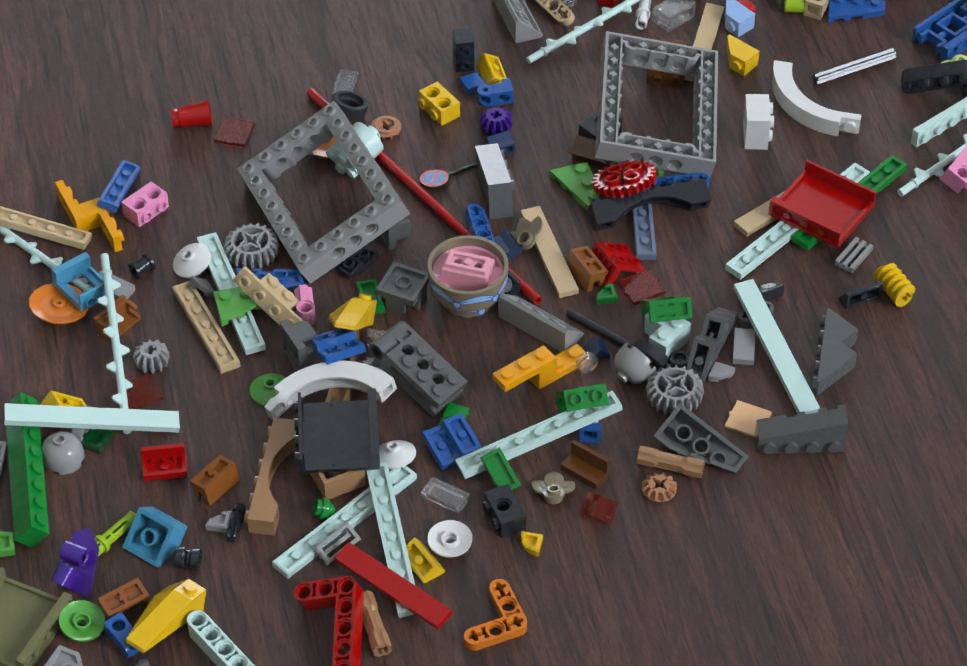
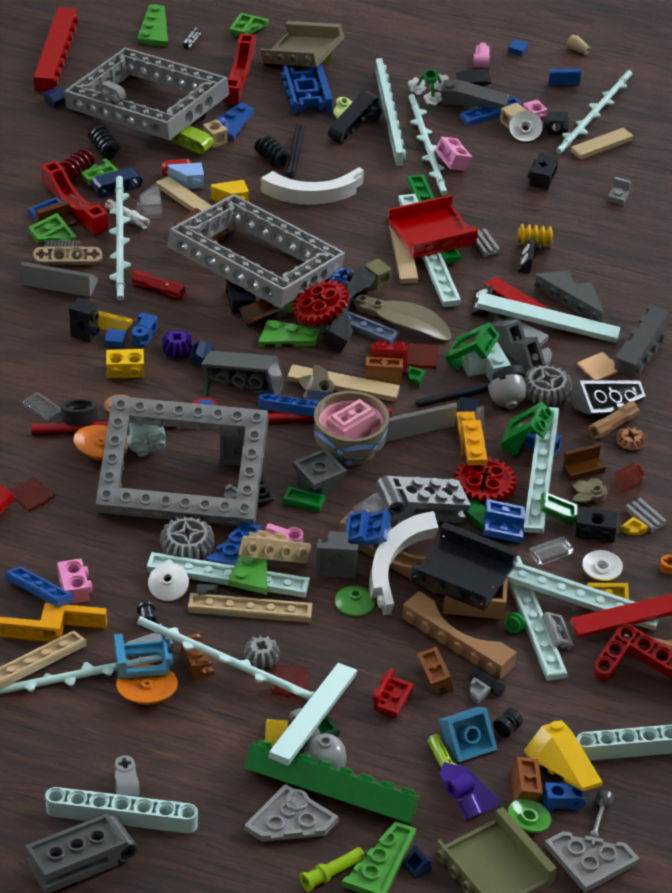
camera: 60 degrees left, 5 degrees down
(355, 313) = (333, 506): yellow wedge -> none
(494, 408) = (499, 482): none -> red gear
(560, 530) = (648, 513): none -> light grey tile
(566, 74) = (146, 280): none -> red axle
(680, 250) = (405, 315): none -> dark tan plant
(723, 201) = (382, 272): none -> olive brick
(757, 121) = (317, 216): white brick -> none
(791, 312) = (507, 291): none -> red tile
(829, 51) = (272, 151): none -> black piece

